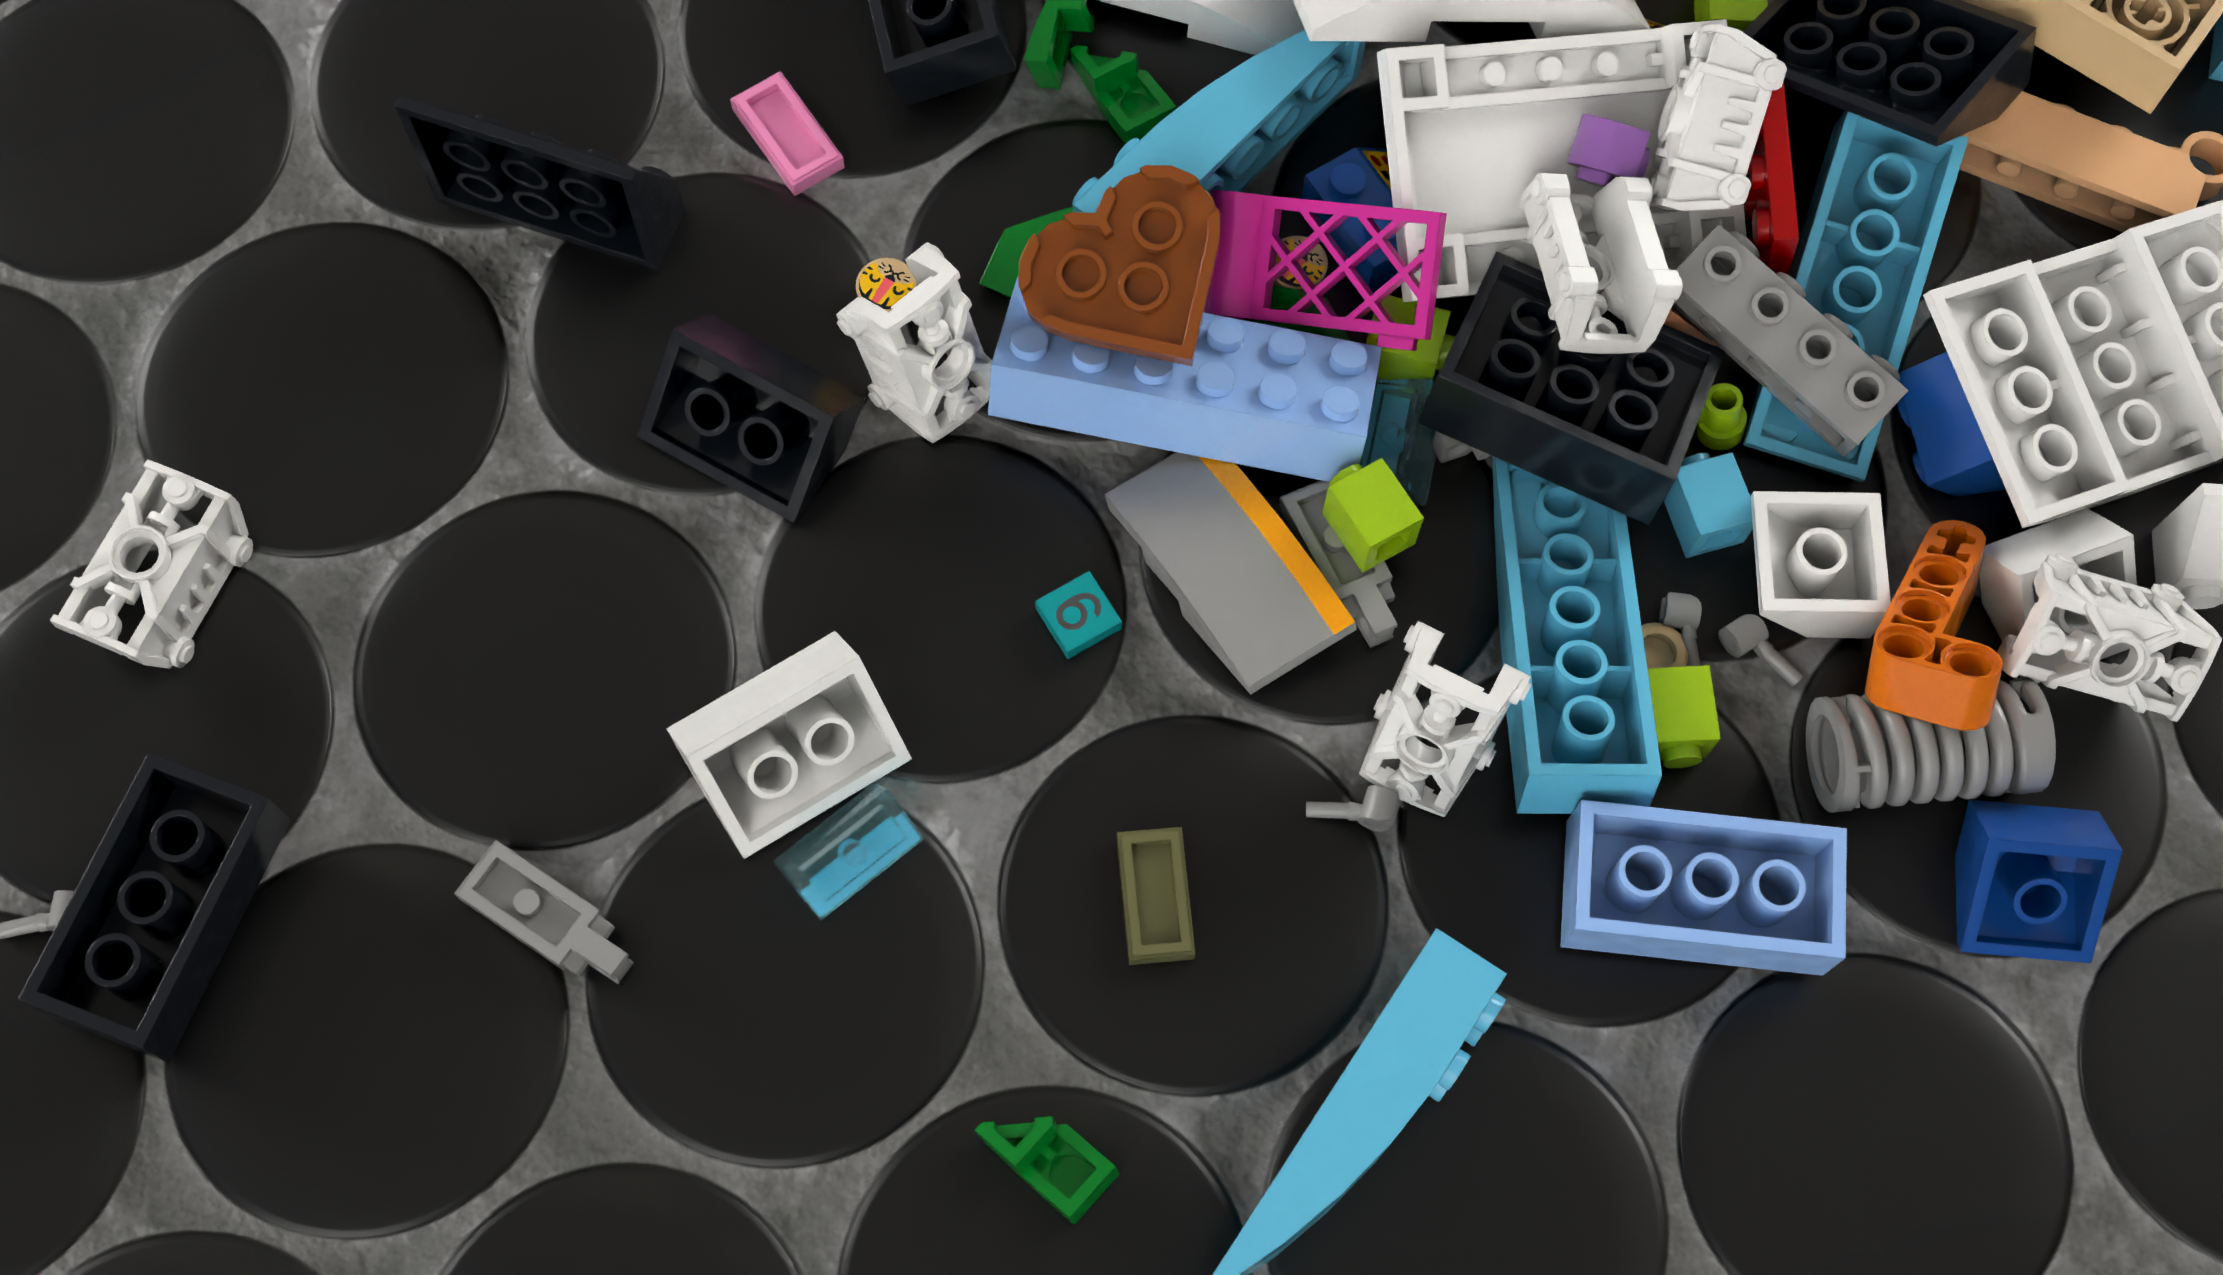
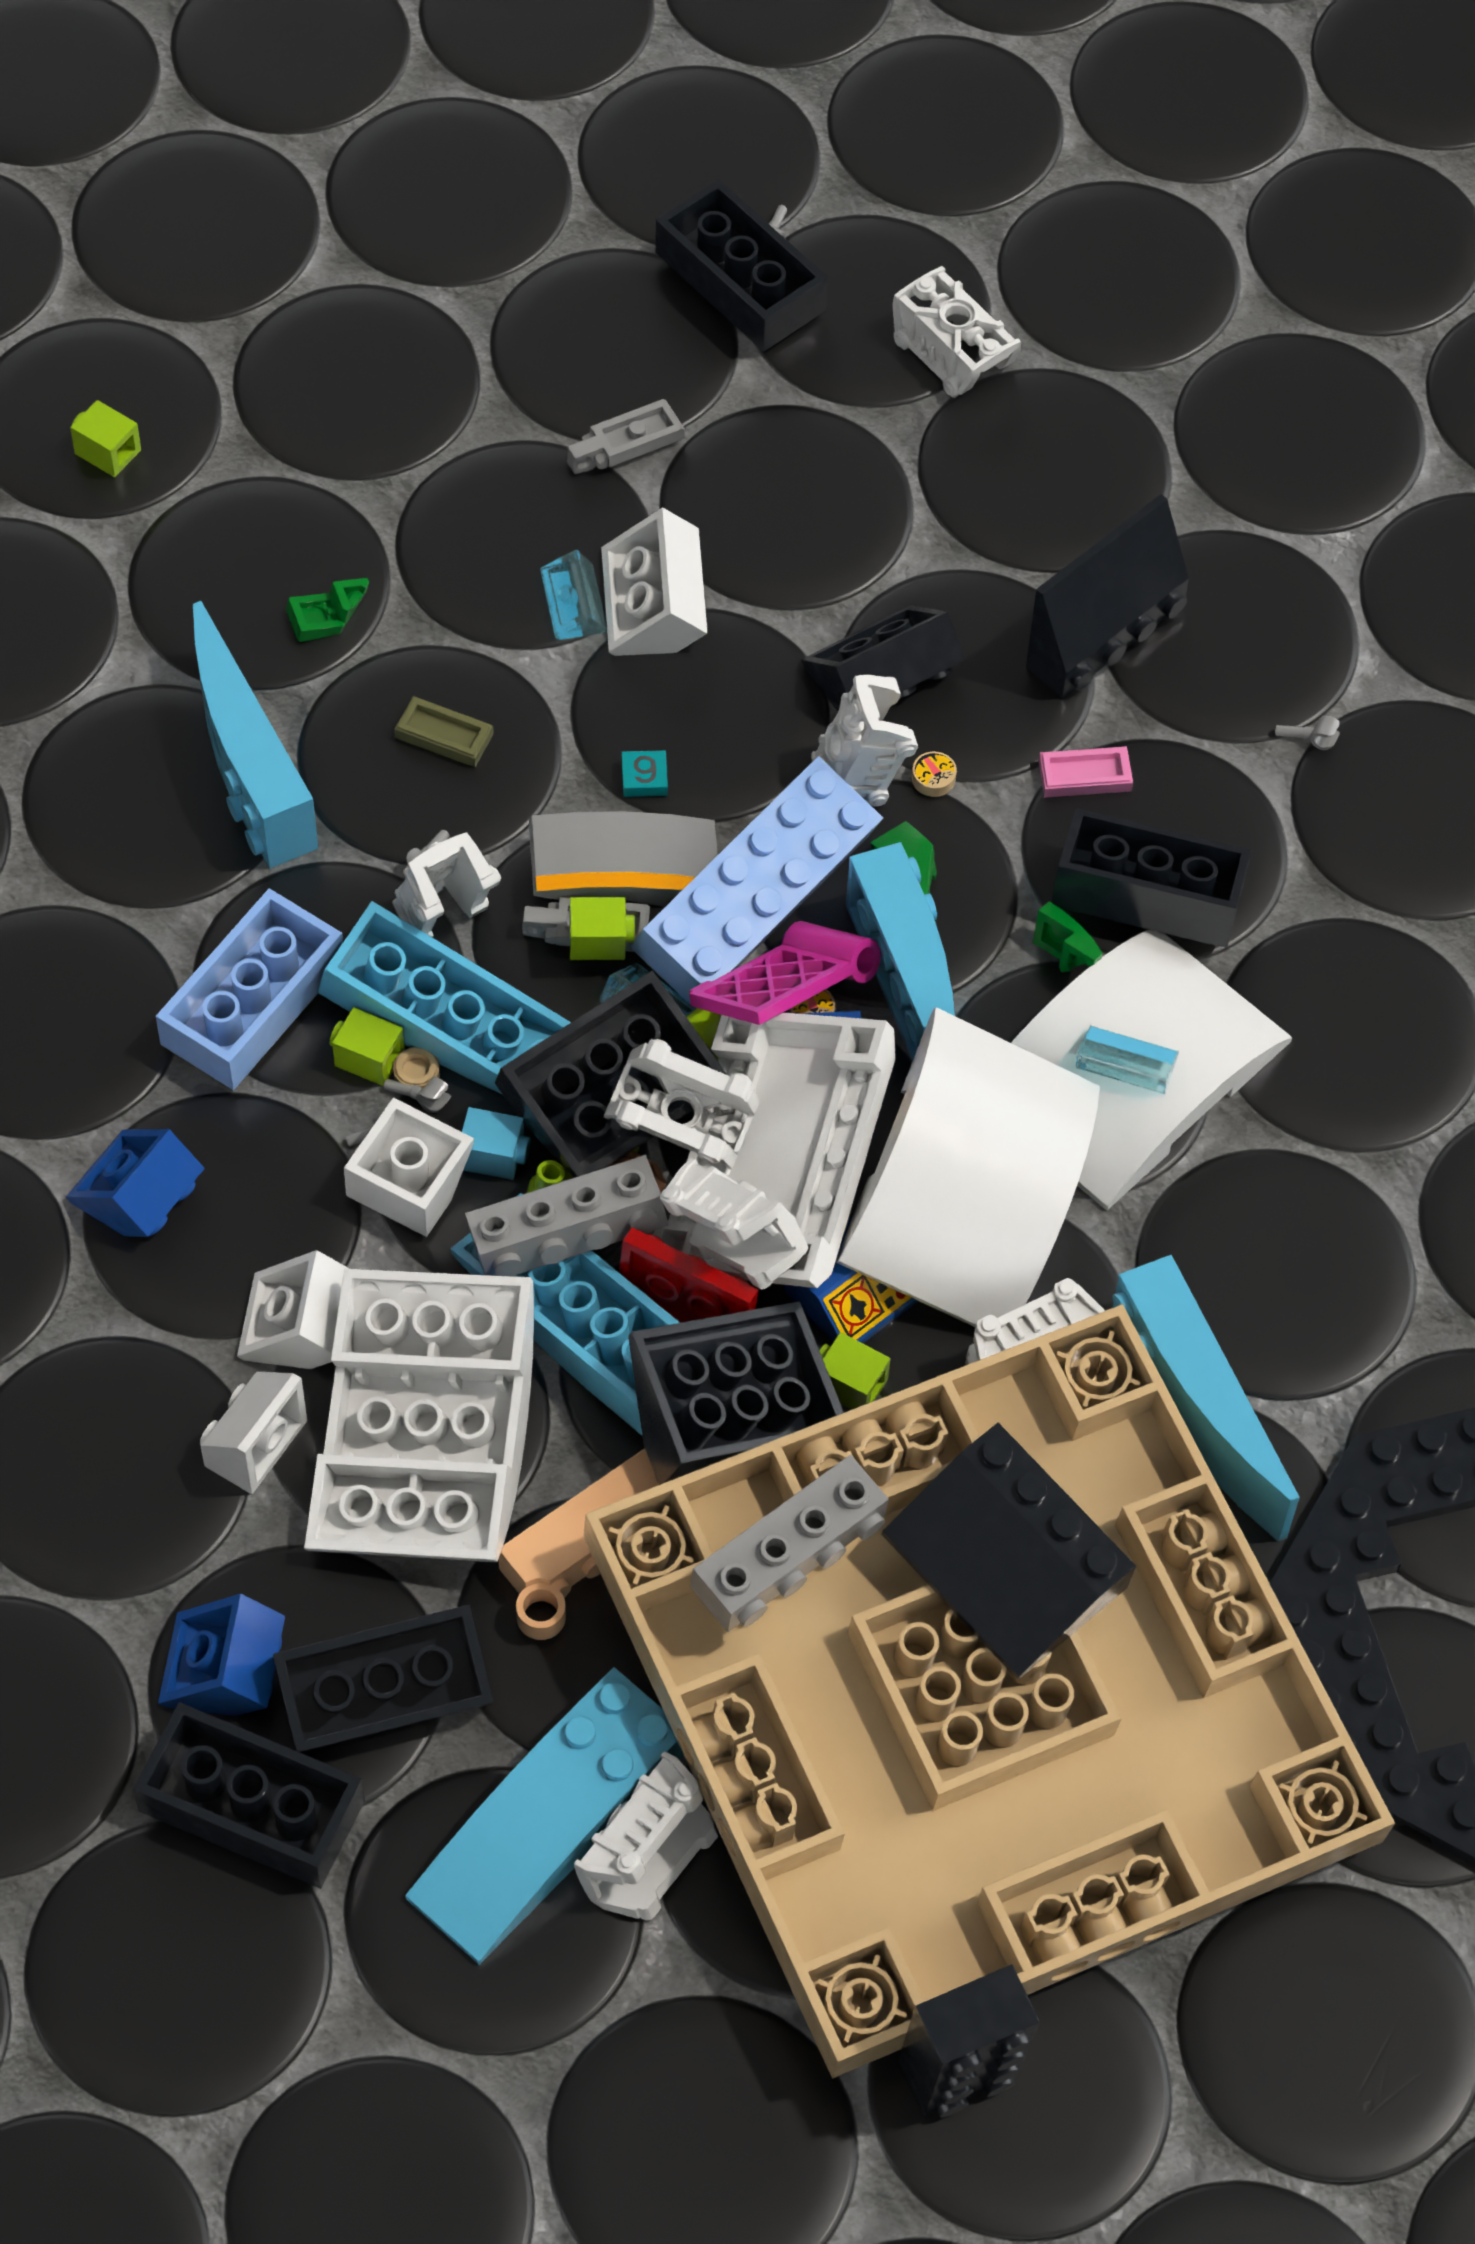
camera: 120 degrees right, 10 degrees down
(1122, 92) = (1000, 975): green slope -> none
(1131, 270) = (830, 841): dark orange plate -> none
(1608, 150) = (760, 1164): medium lavender plate -> none
(1884, 756) = (251, 1158): light grey piece -> none
(1915, 657) = (319, 1195): orange beam -> none
(2117, 615) = (247, 1278): white piece -> none

